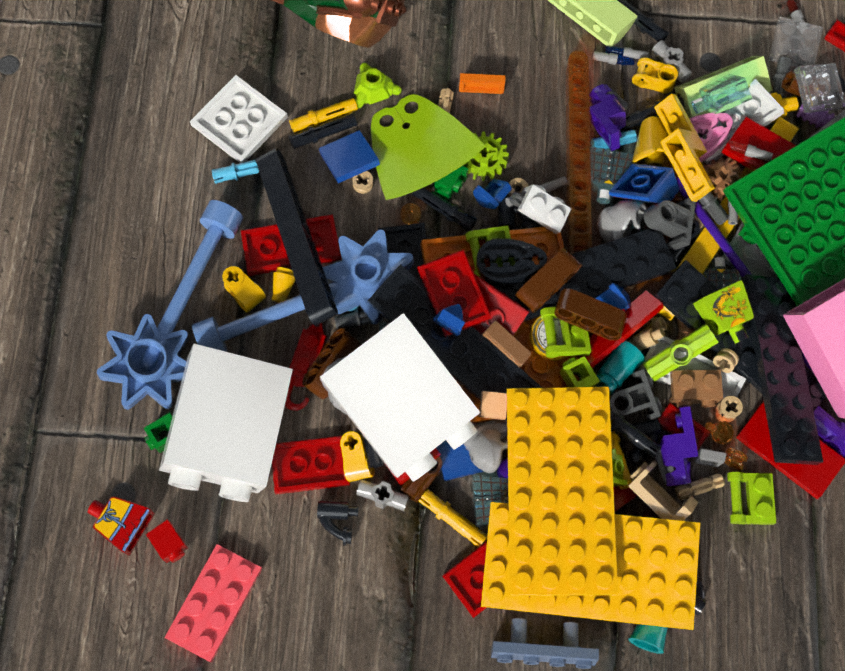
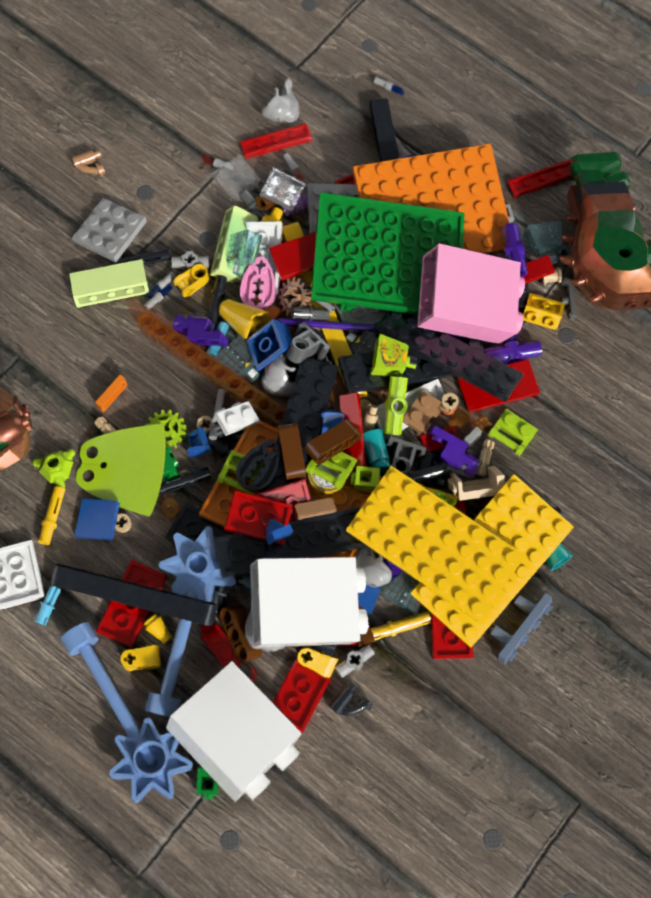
camera: 55 degrees left, 0 degrees up
(121, 522) = (250, 854): torso -> none
(167, 542) = (288, 828): red brick -> none
(213, 603) = (349, 824): coral plate -> none
(323, 130) = (60, 532): black pin -> none
(493, 405) = (349, 546): light nougat tile -> none
(684, 148) = (262, 301): yellow bracket -> none
(729, 356) = (419, 382): tan bush -> none
(750, 151) = (294, 264): light grey piece -> none

